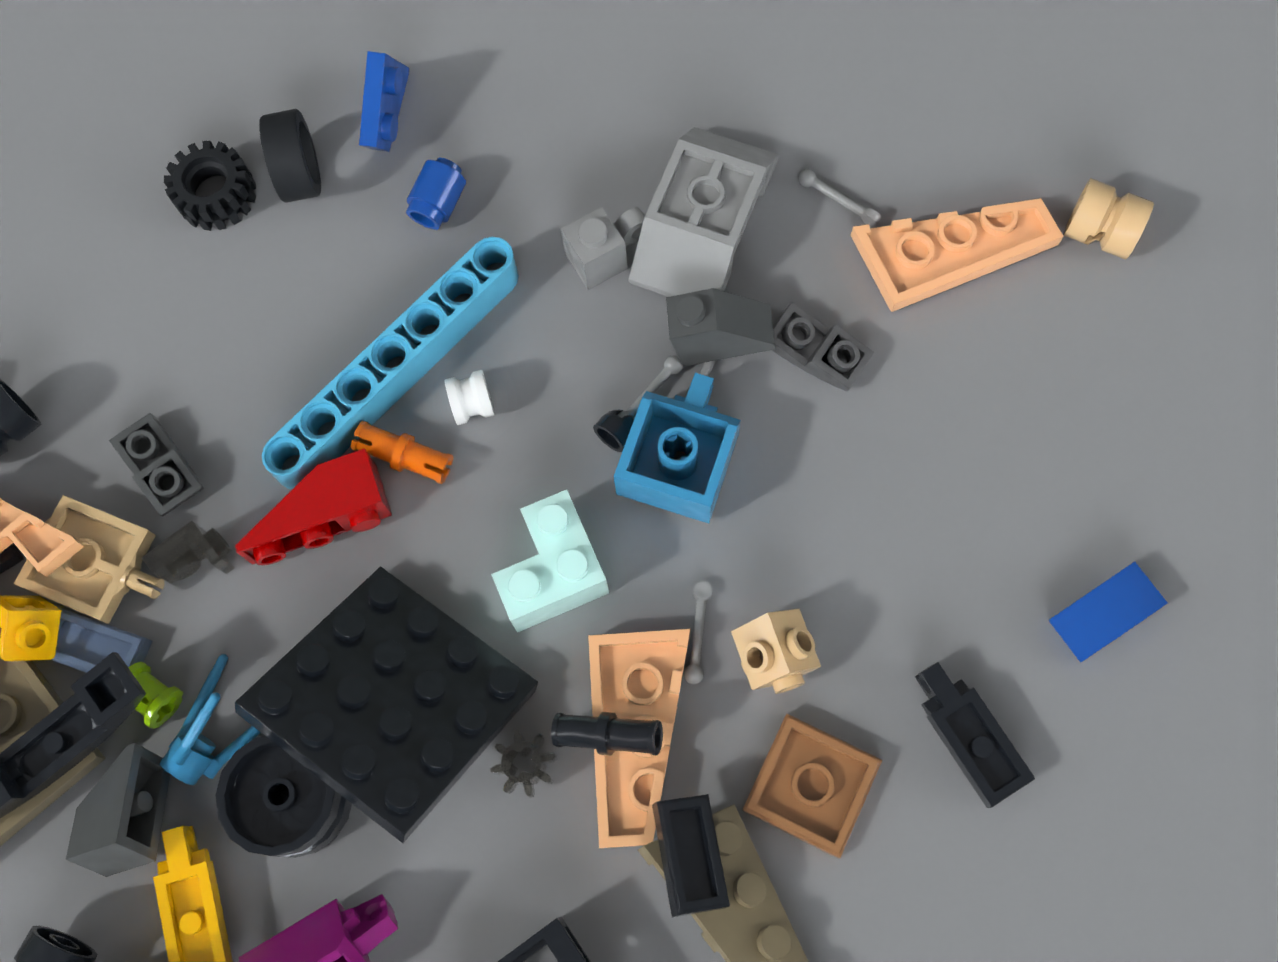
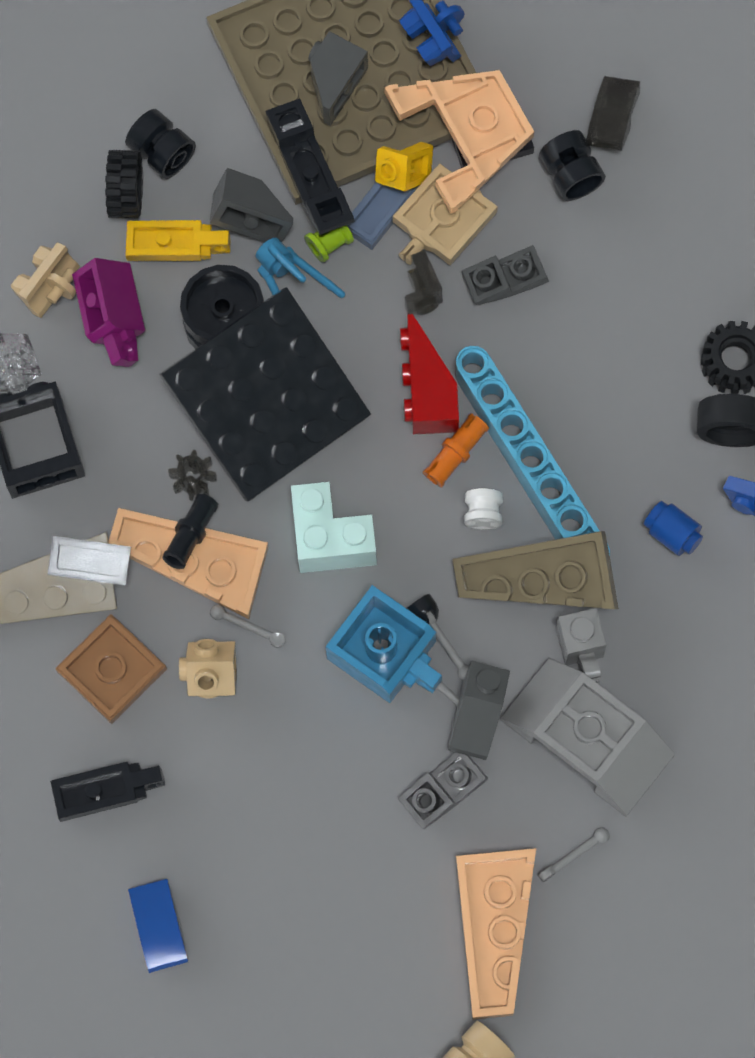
camera: 105 degrees right, 0 degrees up
(530, 286) = (549, 572): none -> dark tan wing

